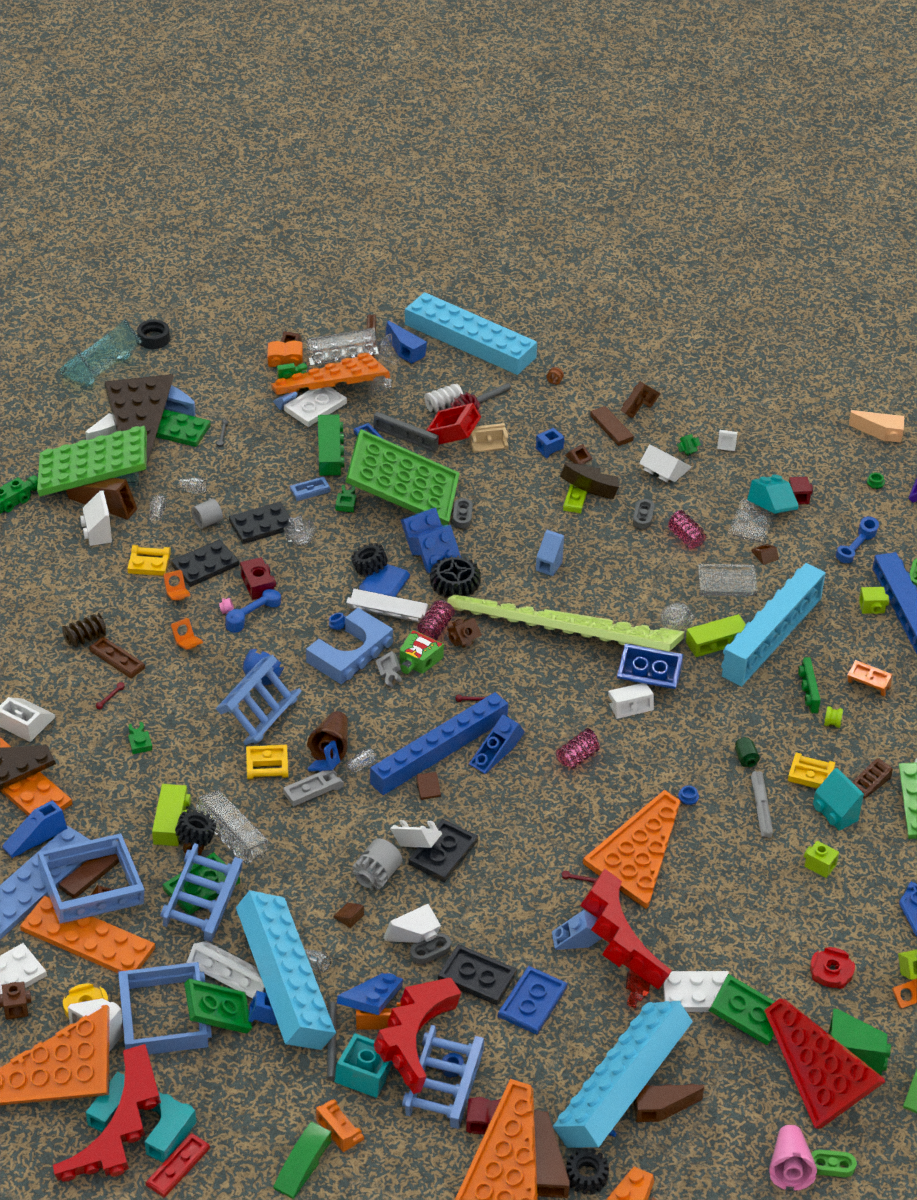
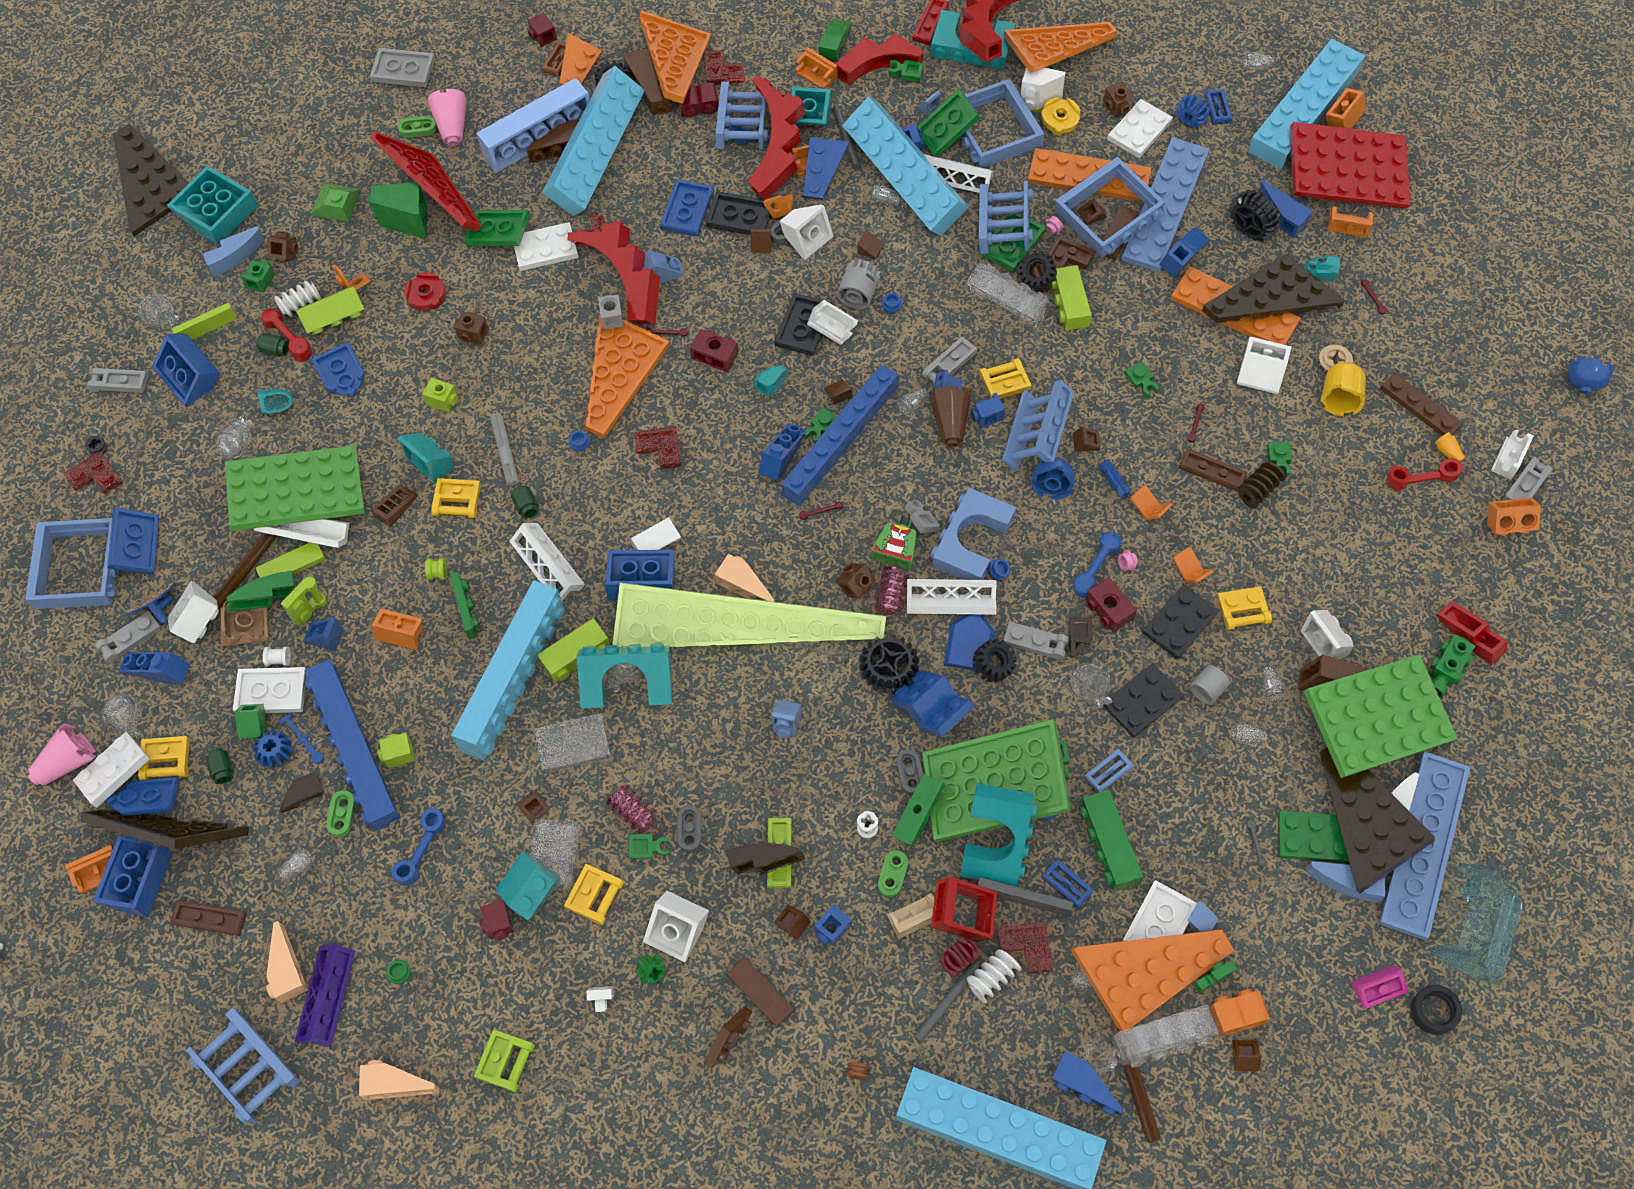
camera: 170 degrees right, 20 degrees up
(53, 656) = (1280, 455): none -> green plate
(73, 427) = (1418, 881): none -> medium blue plate
(152, 889) = (1053, 225): none -> bright pink plate
(155, 861) = (1069, 251): none -> reddish brown plate
(182, 354) = (1380, 986): none -> dark pink slope
(206, 667) = (1115, 478): none -> blue axle
(212, 700) = (1086, 440): none -> reddish brown slope
(224, 1054) = (930, 104): none -> medium blue slope
(231, 1097) = (909, 70): none -> green plate
(270, 1124) = (869, 56): none -> red arch
(291, 570) = (1079, 633): none -> dark brown slope
(295, 734) = (988, 411): none -> blue brick
(328, 573) = (1036, 640): none -> light grey plate
(347, 853) = (891, 302): none -> blue plate
(411, 413) = (1031, 939): none -> clear red plate
(415, 441) = (1013, 810): none -> teal arch
(430, 966) = (782, 205): none -> orange bracket
(451, 764) = (820, 424): none -> green plate
(455, 1149) = (718, 71): none -> clear red plate
(463, 940) = (761, 241): none -> reddish brown slope
(465, 485) = (911, 821): none -> green tile
(490, 804) = (770, 380): none -> teal rock
(496, 465) = (893, 873): none -> bright green plate
(506, 489) = (873, 827): none -> white bush
(539, 842) = (721, 358): none -> dark red brick
(562, 655) = (740, 579): none -> light nougat slope
(578, 749) = (697, 459): clear pink piece -> none
(608, 777) = (661, 440): none -> clear red plate
(637, 885) = (611, 318): none -> light grey brick
(668, 509) = (642, 847): none -> green plate
(676, 598) = (652, 660): none -> teal arch
(689, 1113) = (509, 137): none -> light blue brick
(727, 496) = (586, 891): none -> yellow plate
(731, 705) = (547, 556): none -> white fence
(785, 911) = (471, 327): none -> reddish brown brick
(804, 428) = (496, 1059): none -> lime plate

